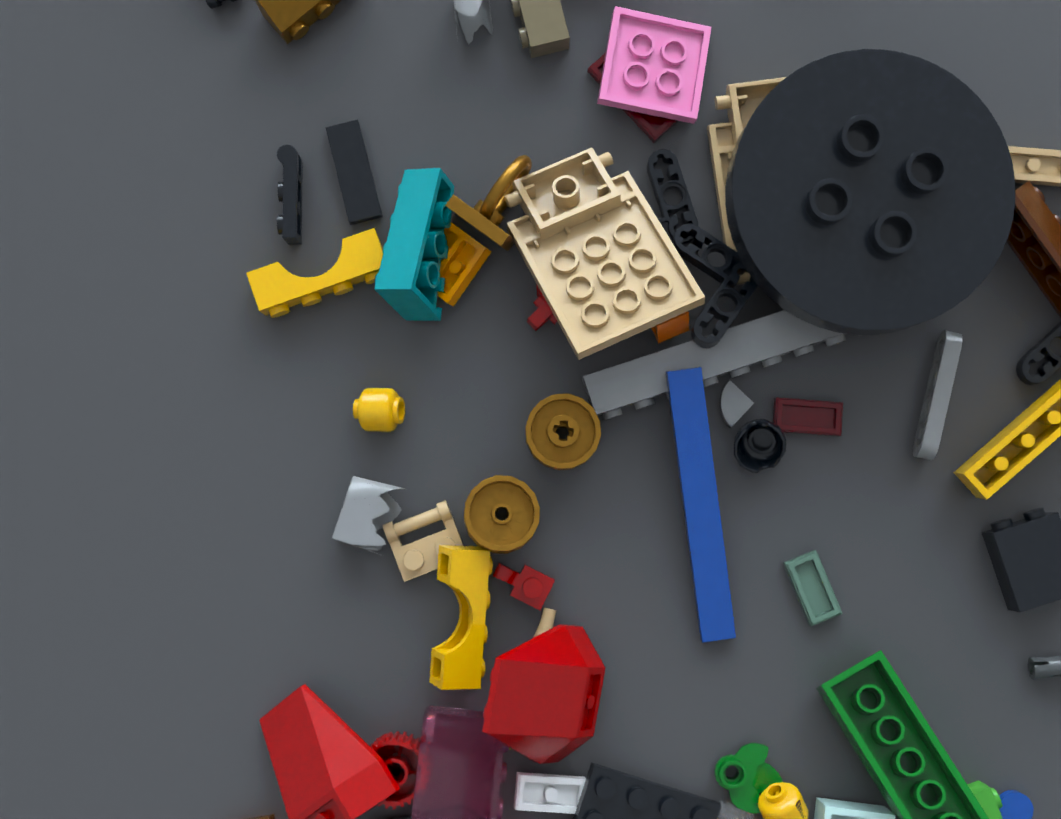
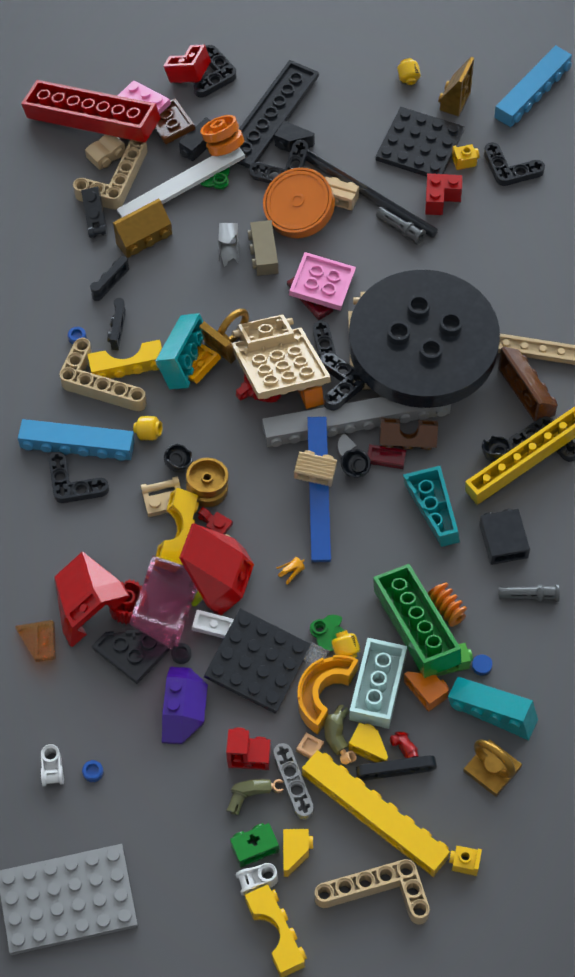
camera: 10 degrees right, 25 degrees down
(221, 224) = (76, 333): none -> blue tile
(253, 447) = (76, 439): none -> dark azure brick
(258, 543) = (70, 487): none -> black beam
(261, 98) = (109, 278): none -> black plate
(270, 326) = (96, 382): none -> tan beam
(354, 172) = (153, 317): black tile -> none
(364, 512) = (132, 476): light grey piece -> none
(442, 467) = (177, 458): none -> black hair
(567, 412) = (247, 446): pearl gold wheel -> none
(676, 661) = (295, 565): none -> light orange piece
(695, 479) = (315, 468): none -> tan brick
(812, 588) = (378, 541): sand green tile -> none
(873, 376) = (423, 437): none -> reddish brown arch
(907, 510) = (432, 499): none -> teal wedge
(937, 395) = (459, 450): light grey beam -> none
(950, 704) = (447, 604): none -> orange piece
(1005, 386) = (495, 447): none -> black hair

